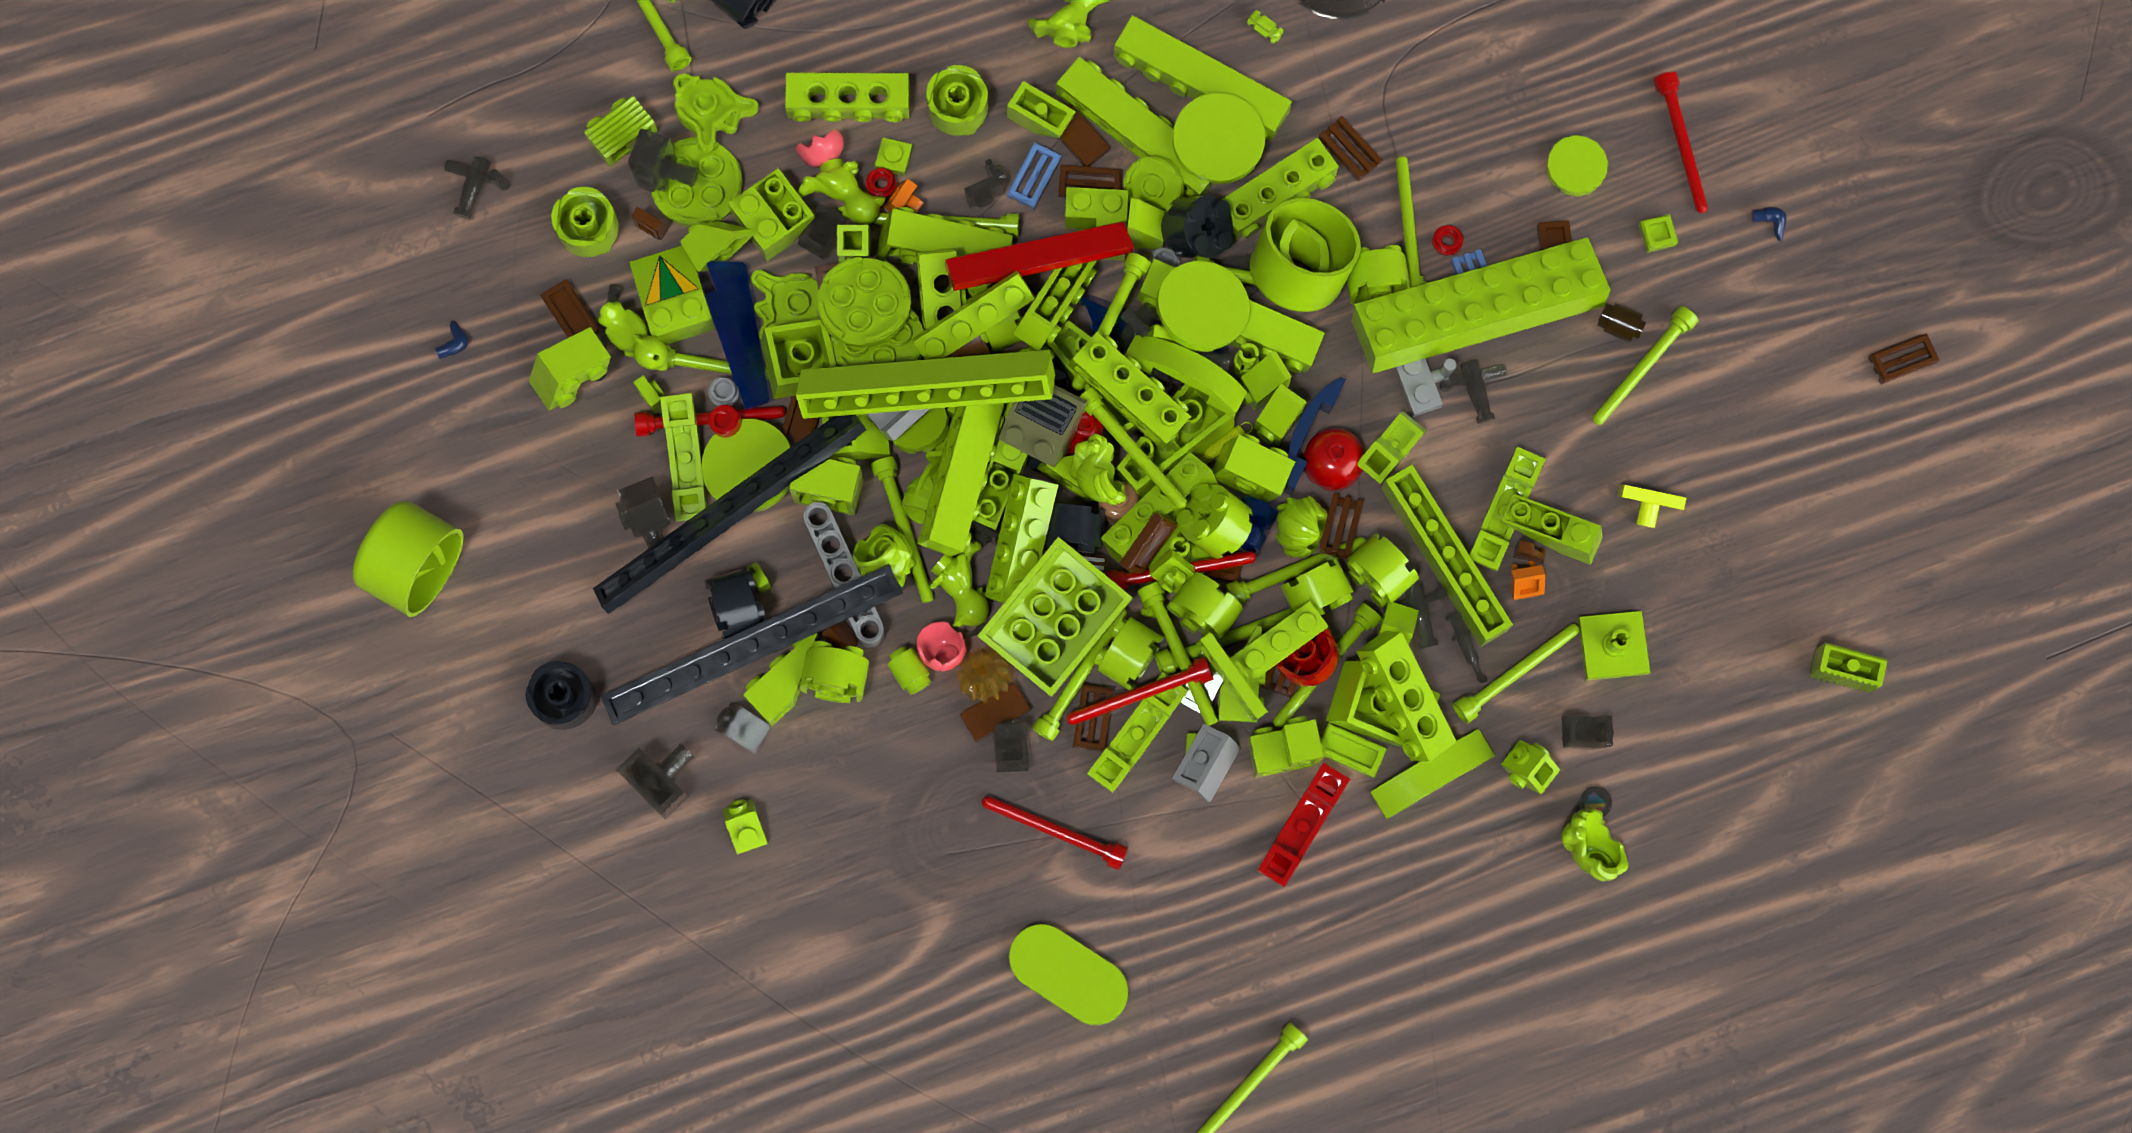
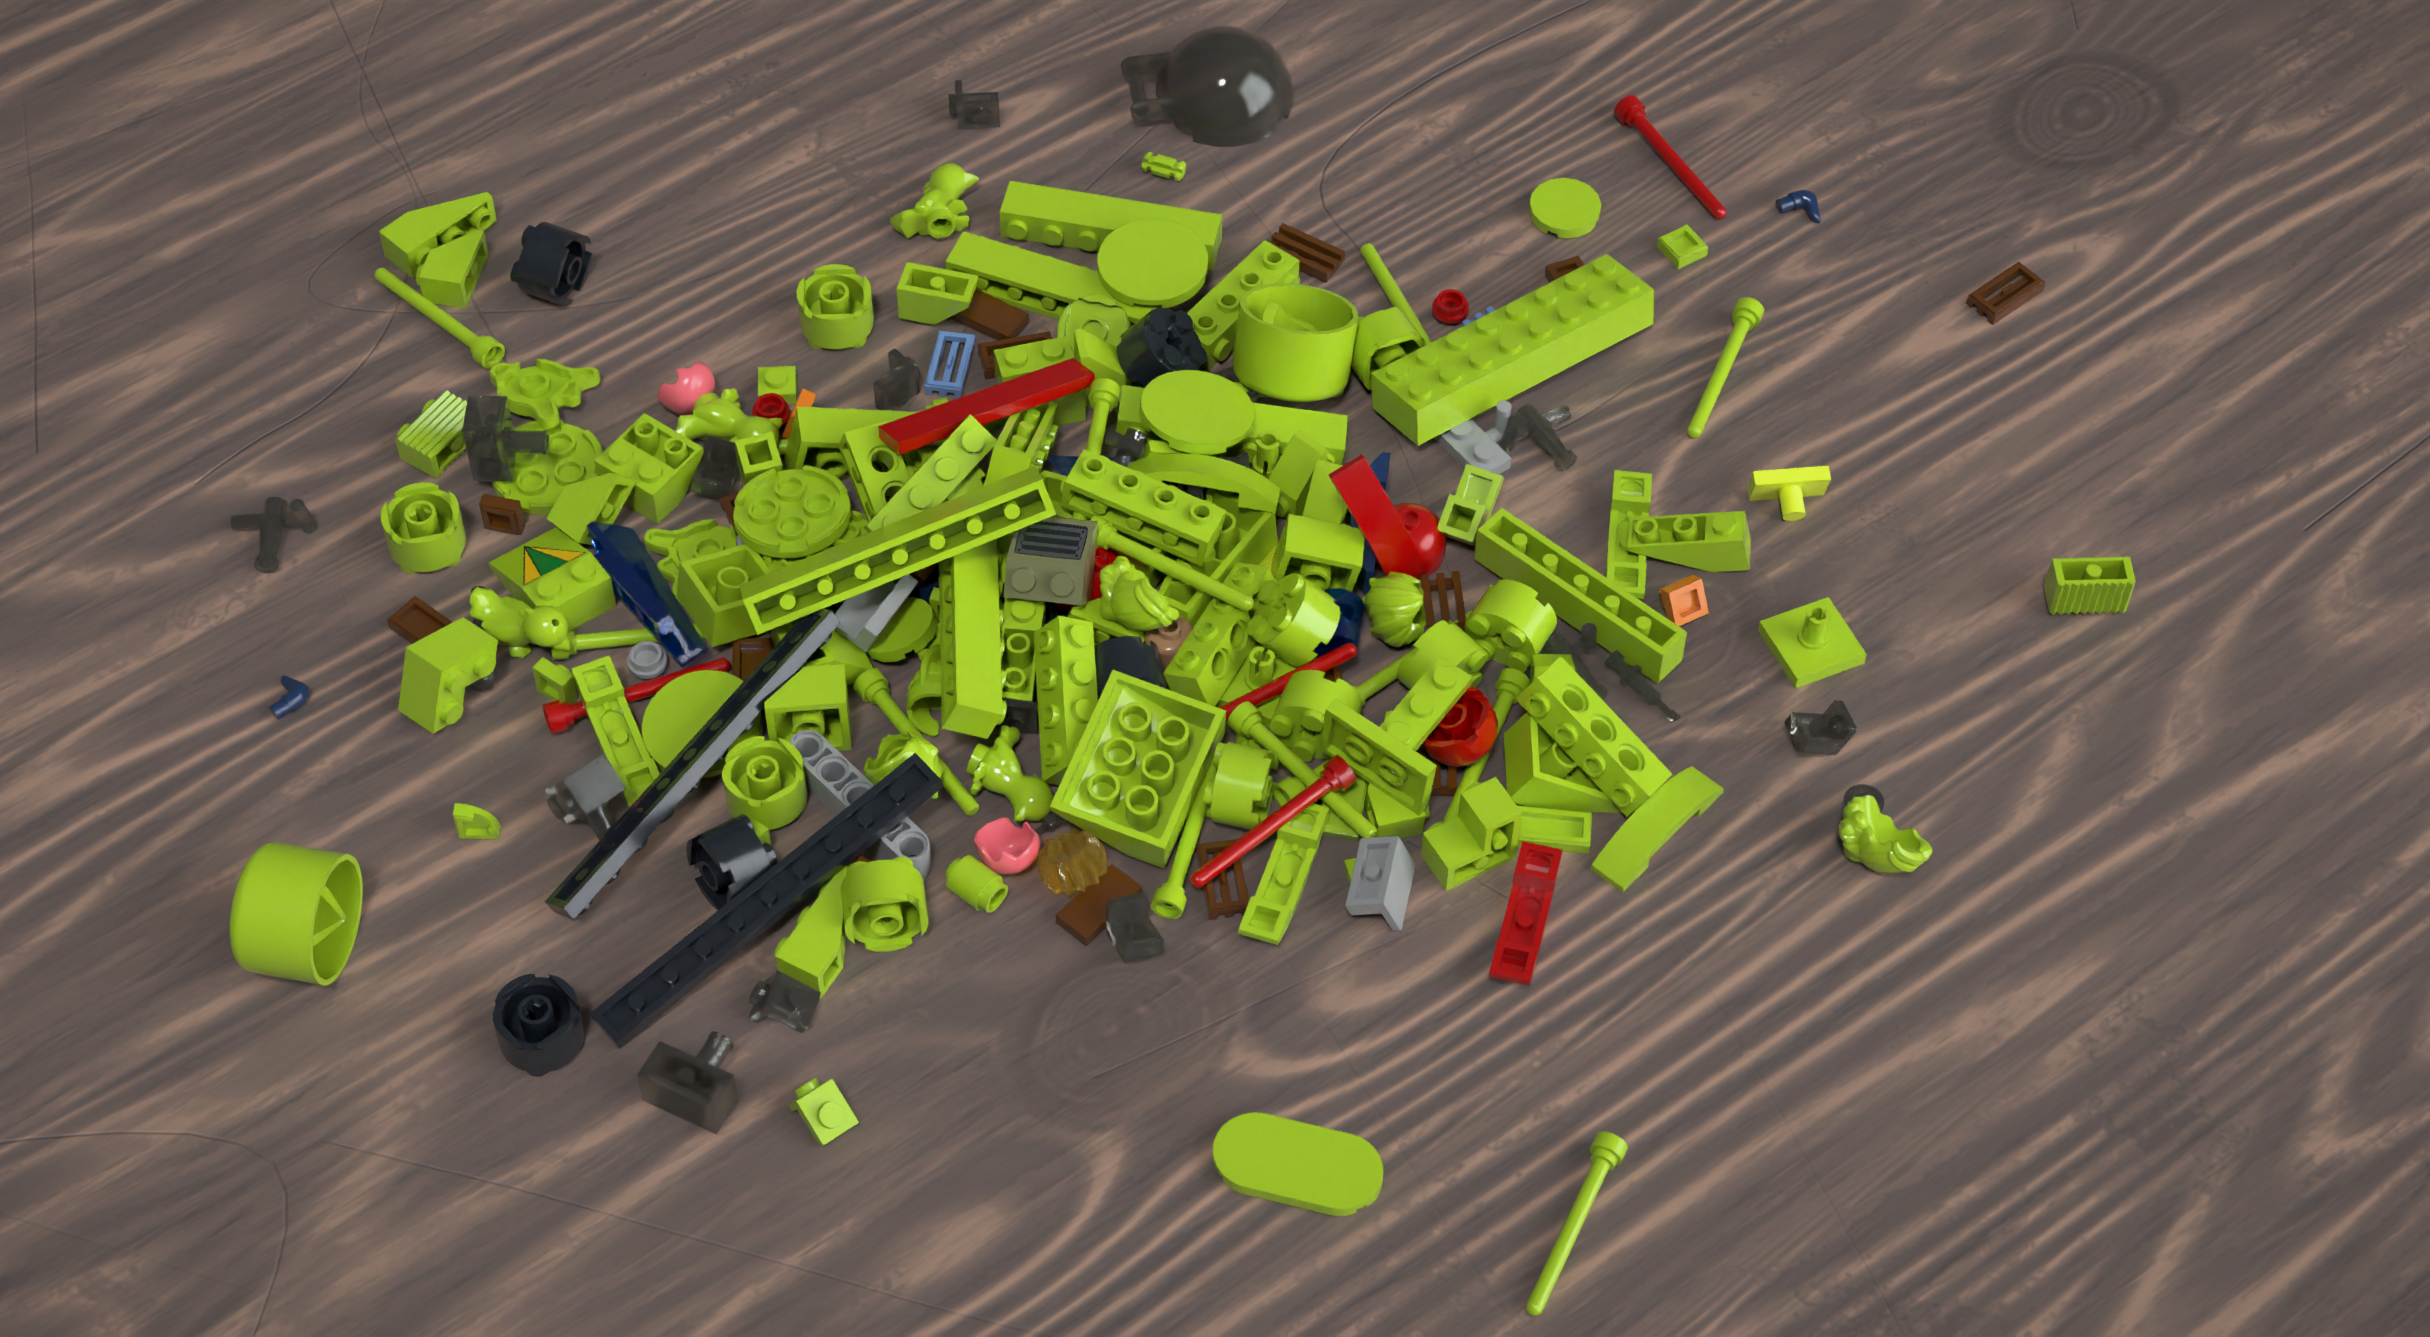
camera: 15 degrees left, 25 degrees down
(560, 502) = (475, 822): none -> lime tile
(725, 421) = (659, 682): red tile -> none
(760, 537) = (765, 781): none -> lime brick
(834, 86) = (705, 335): lime brick -> none
(1111, 853) = (1301, 1013): red piece -> none
(1148, 543) = (1222, 661): reddish brown tile -> none
(1171, 571) = (1261, 685): lime tile -> none
(1303, 458) = (1377, 518): none -> red slope
(1468, 707) = (1671, 744): lime piece -> none
(1525, 762) = (1771, 778): lime brick -> none
(1526, 551) = (1670, 571): reddish brown tile -> none
(1621, 322) = (1679, 331): dark brown brick -> none

